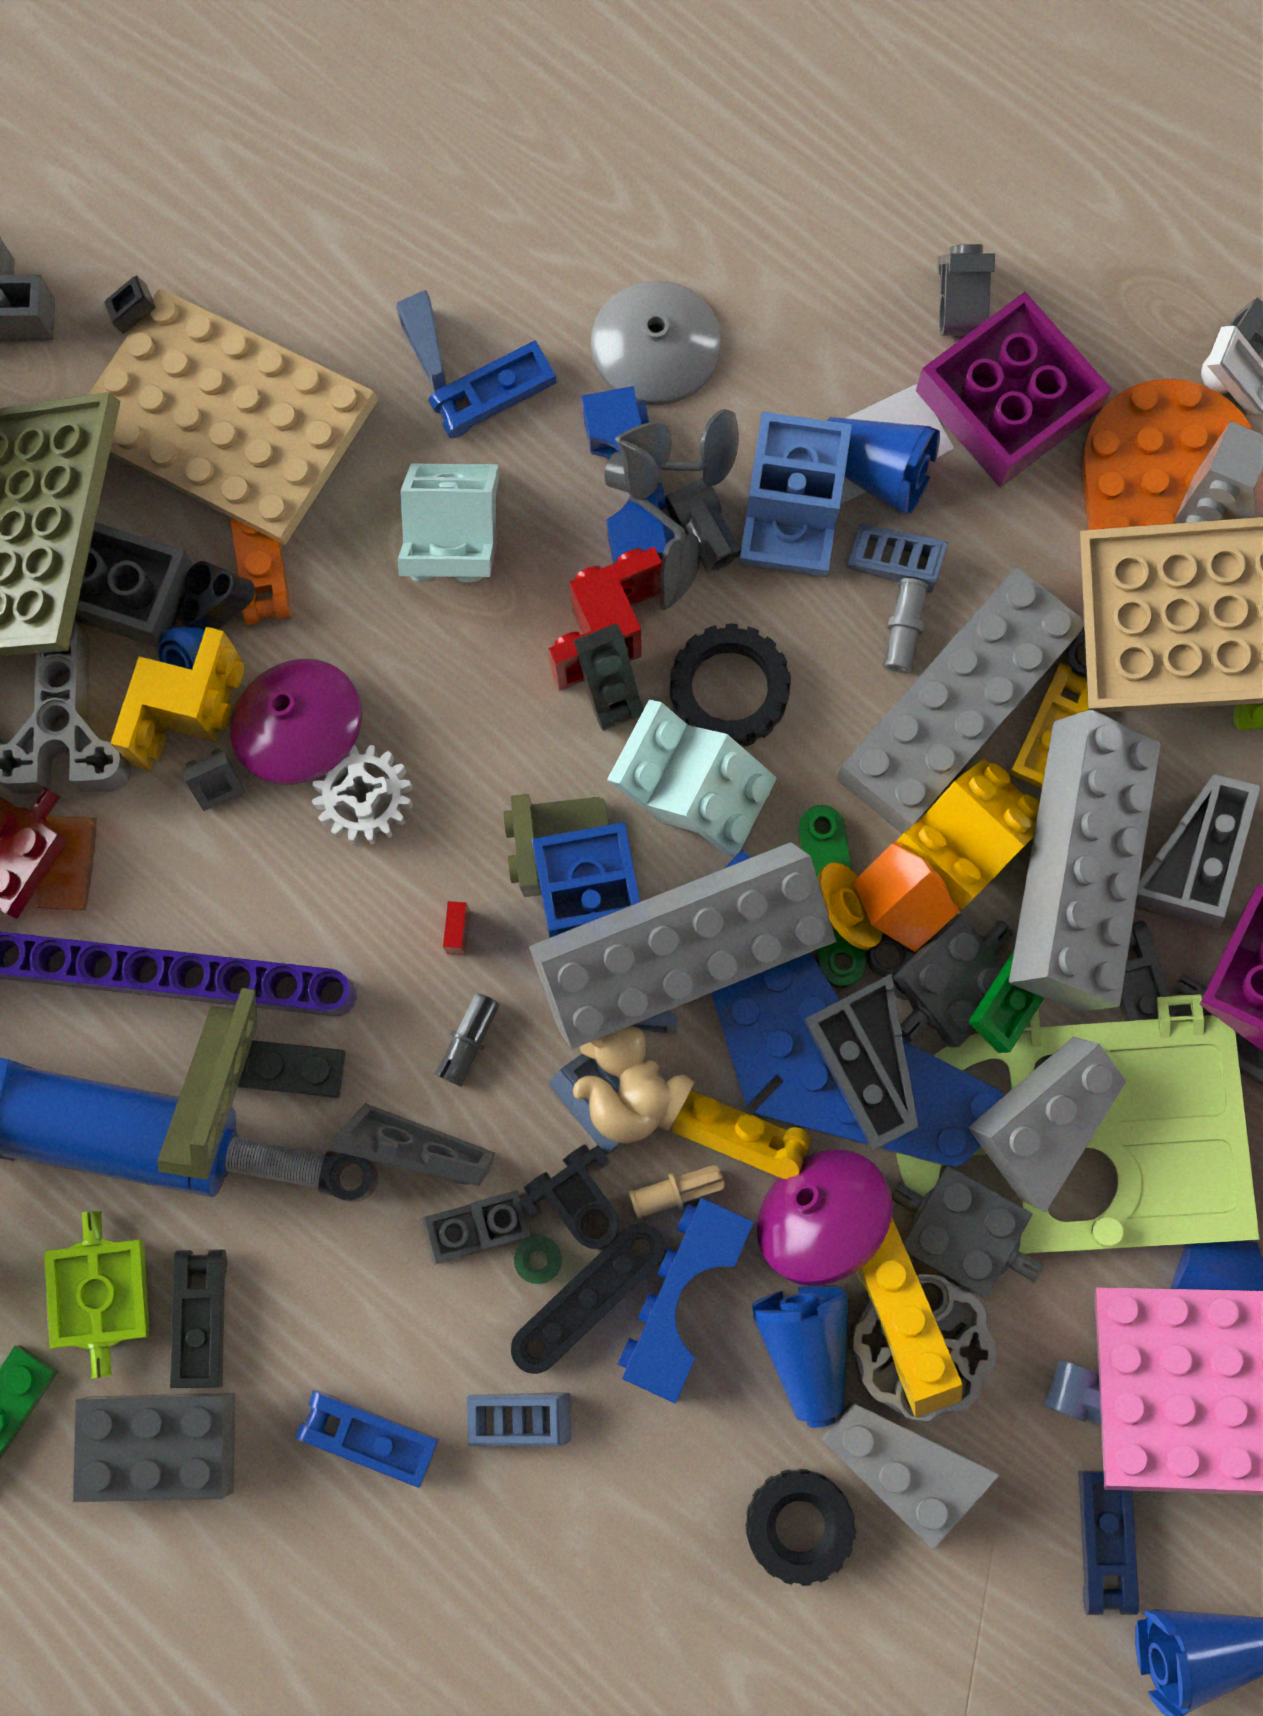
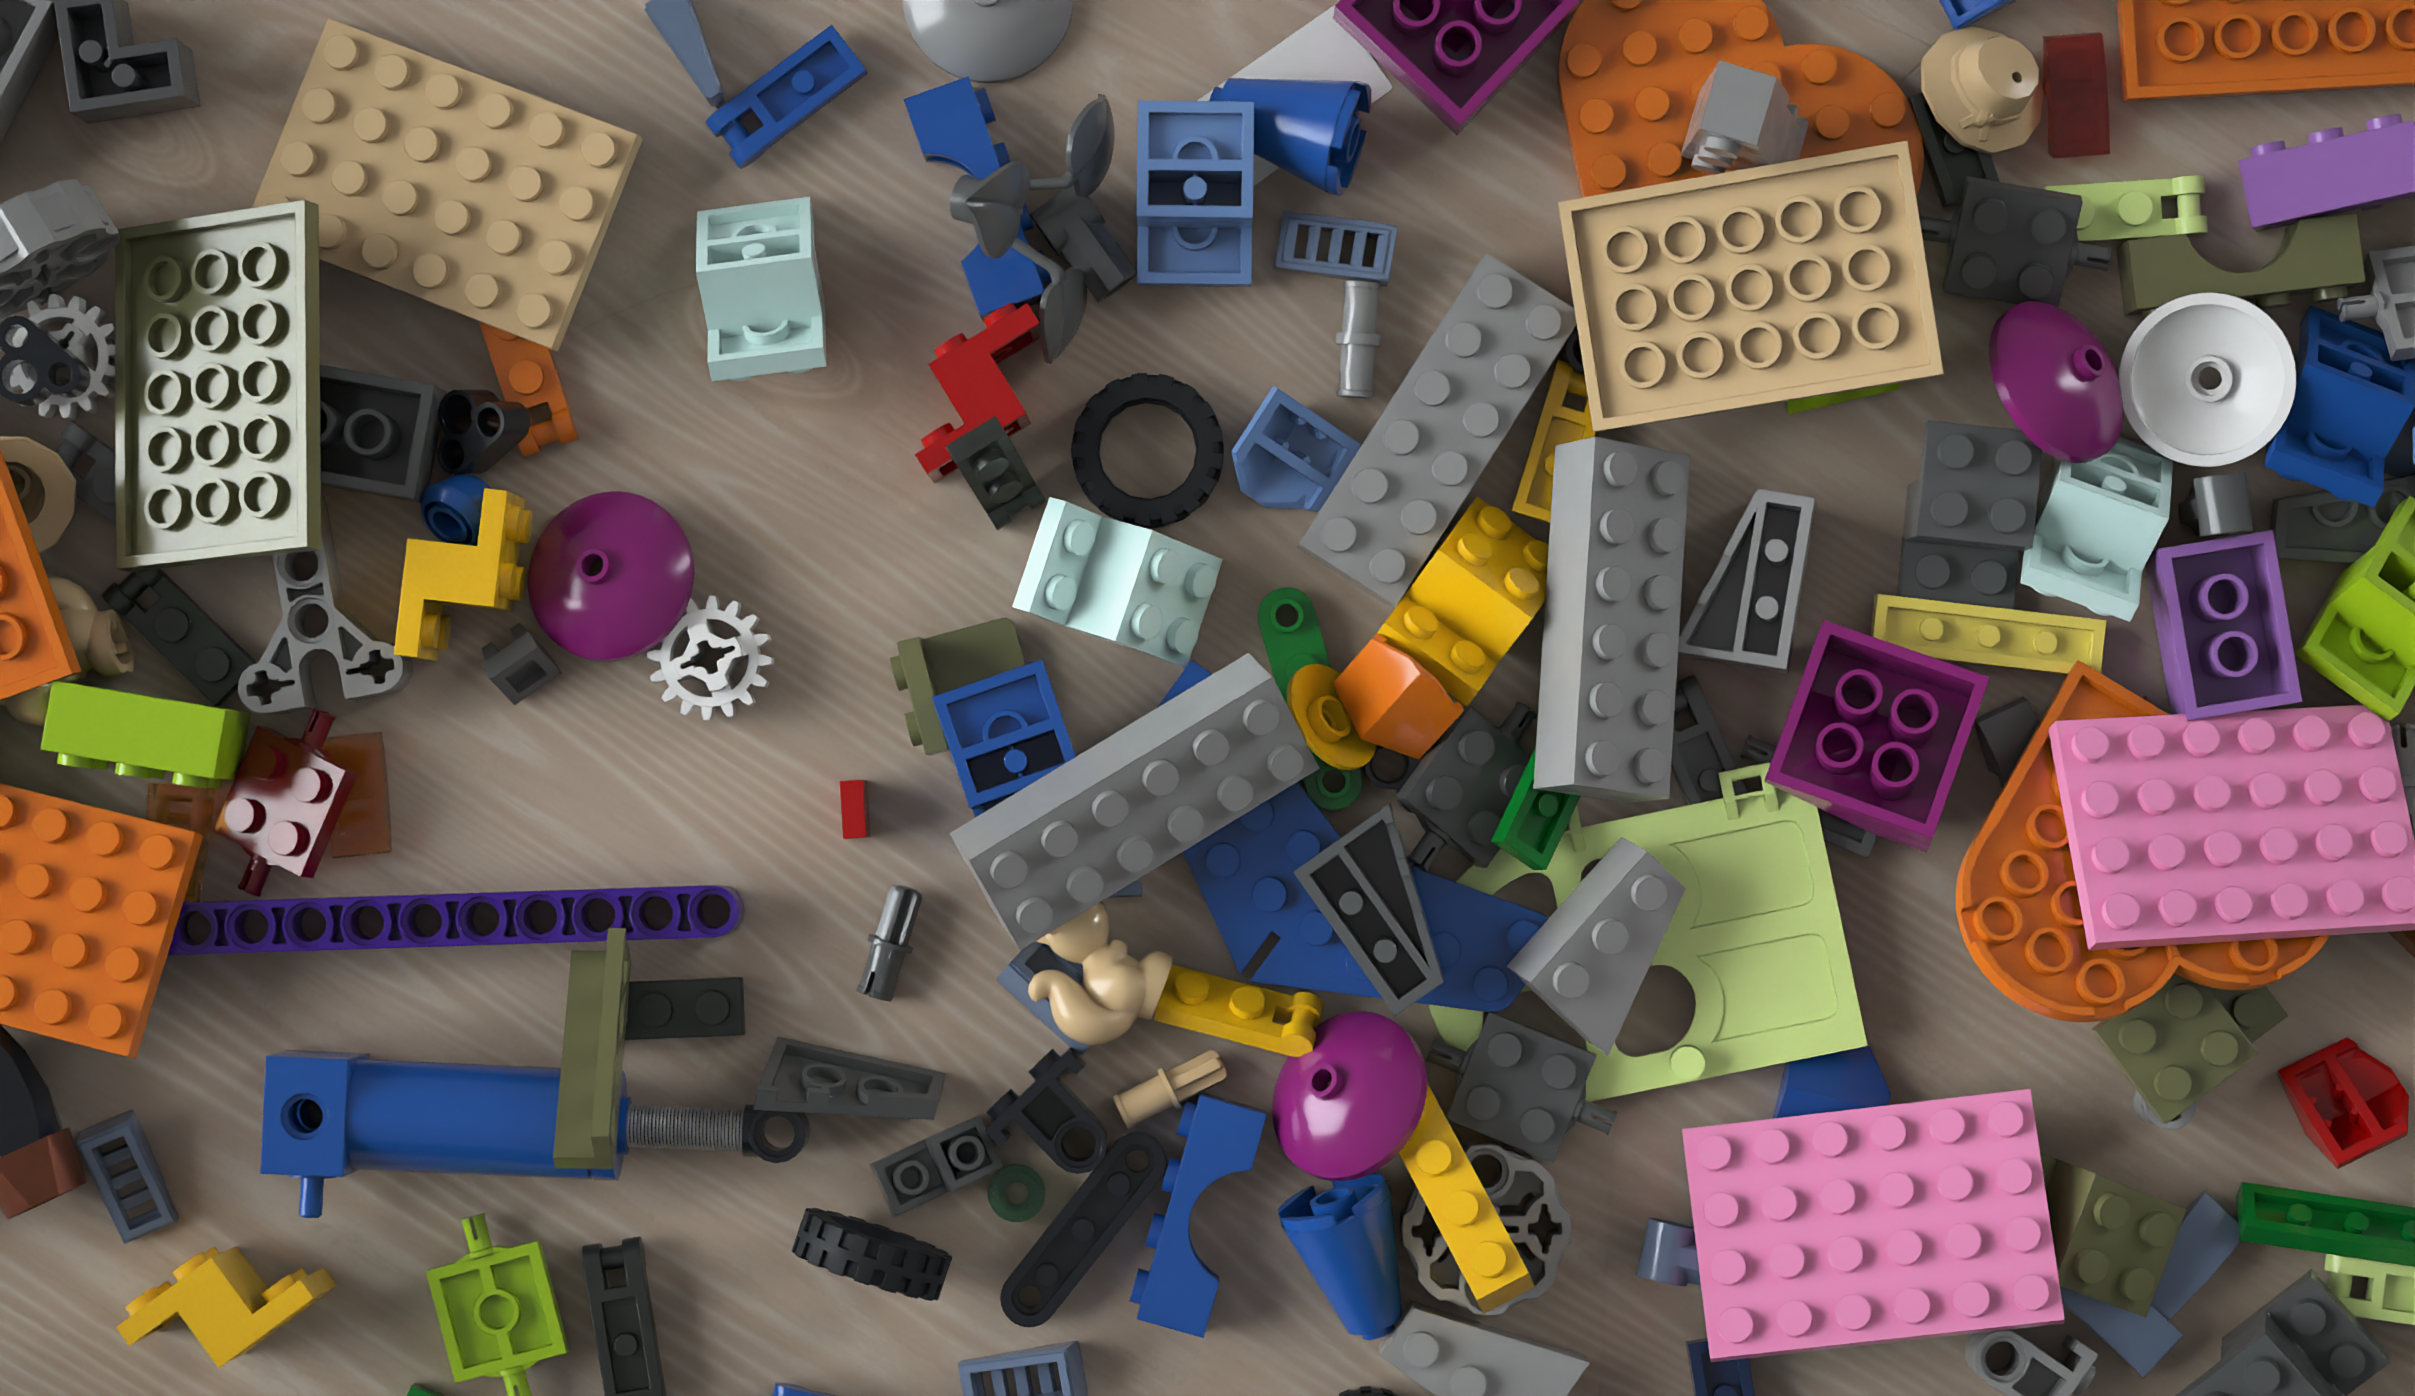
camera: 10 degrees left, 10 degrees up
(129, 304) = (294, 49): black tile -> none
(409, 1289) = (871, 1254): none -> black tyre
(840, 703) = (1290, 455): none -> medium blue slope

